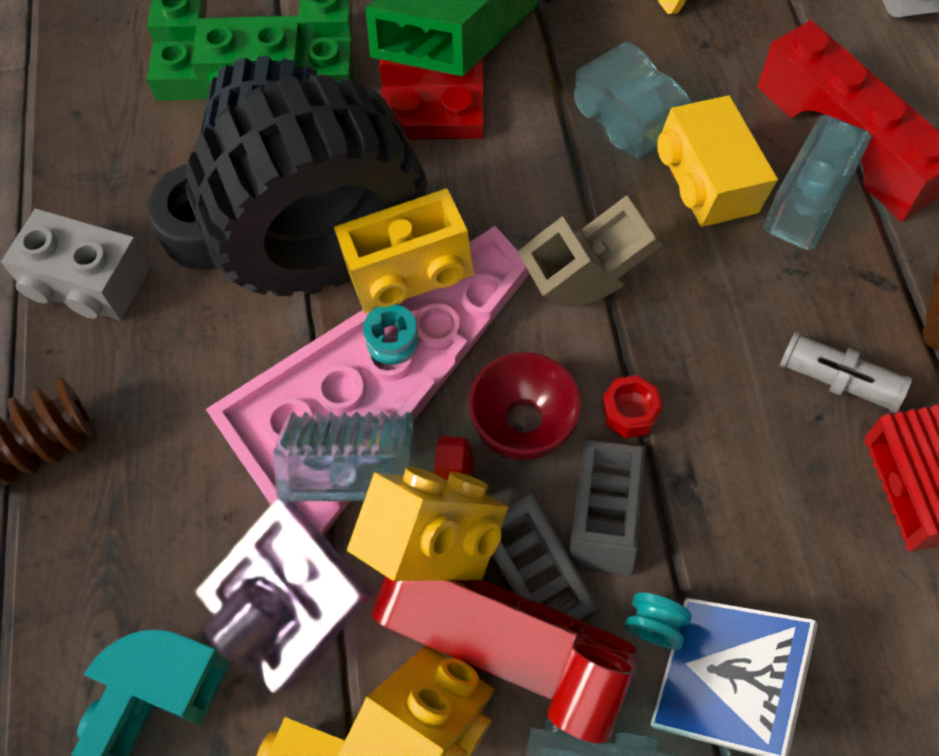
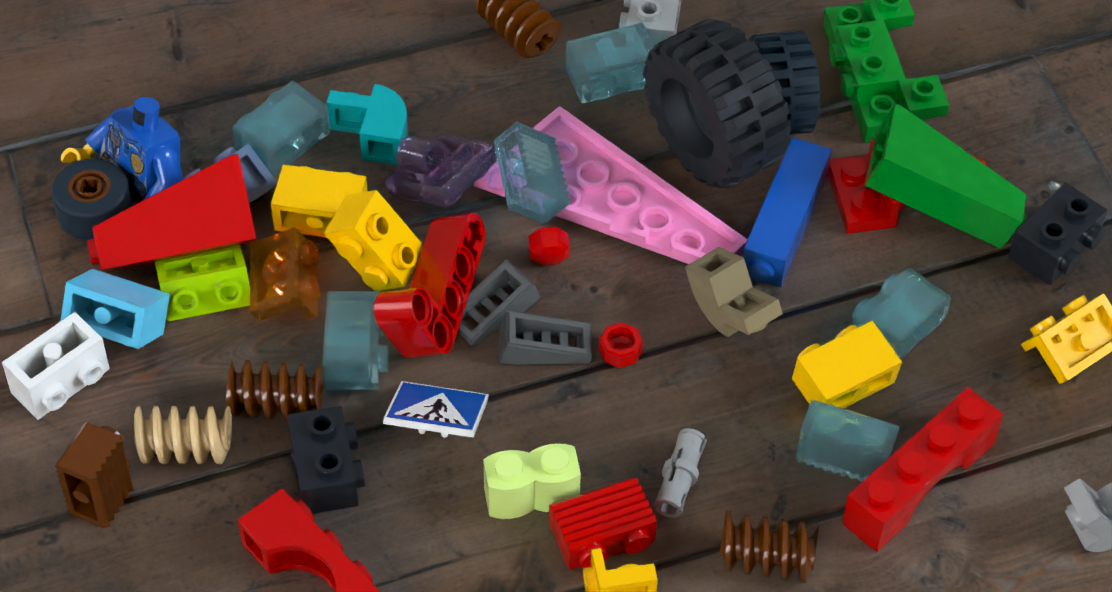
camera: 75 degrees right, 10 degrees down
(154, 327) = (608, 62): none -> clear light blue brick
(374, 334) = (640, 180): teal bush -> none
(406, 250) = (692, 175): yellow brick -> none
(427, 526) = (490, 218): yellow brick -> none
(481, 185) = (786, 211): none -> blue brick
(528, 381) = (601, 263): dark red piece -> none
(658, 620) = (465, 370): teal bush -> none
(874, 572) = (527, 481): none -> yellowish green brick

